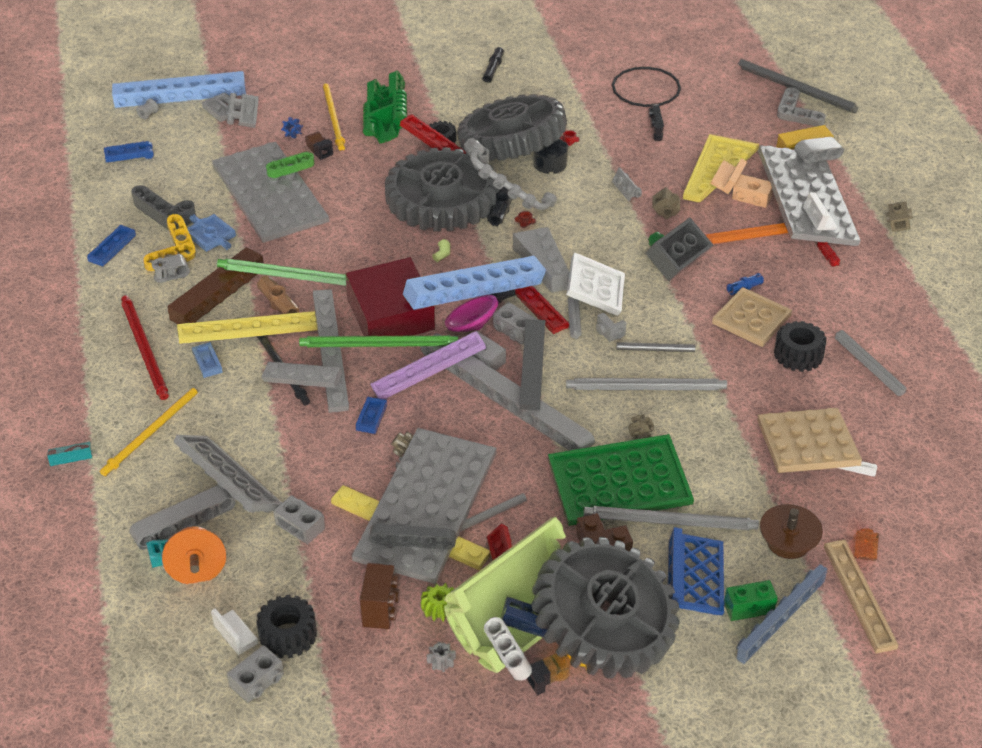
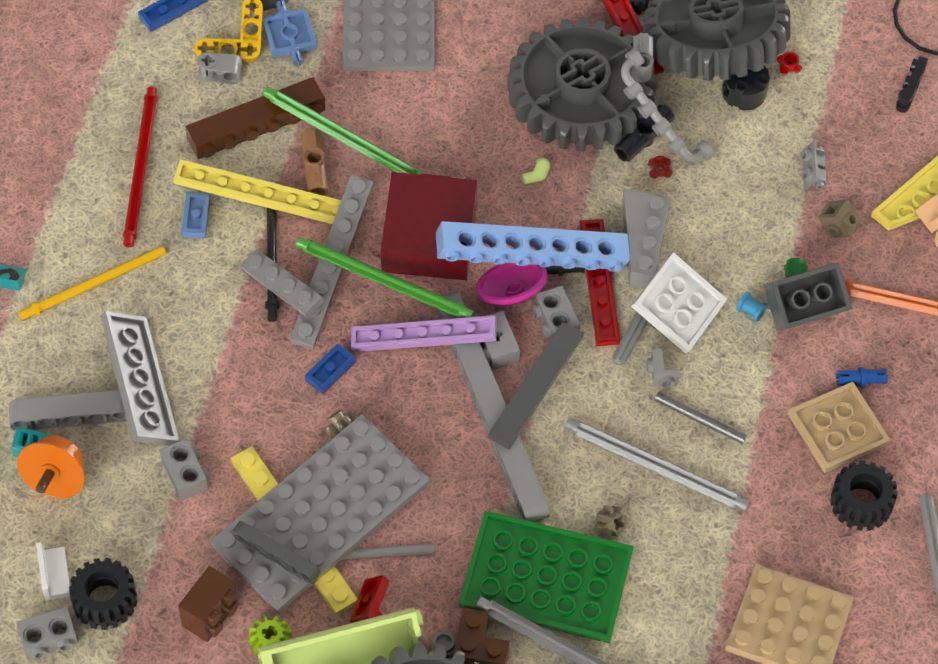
camera: 25 degrees right, 15 degrees up
(643, 271) = (751, 306): none -> dark azure bush

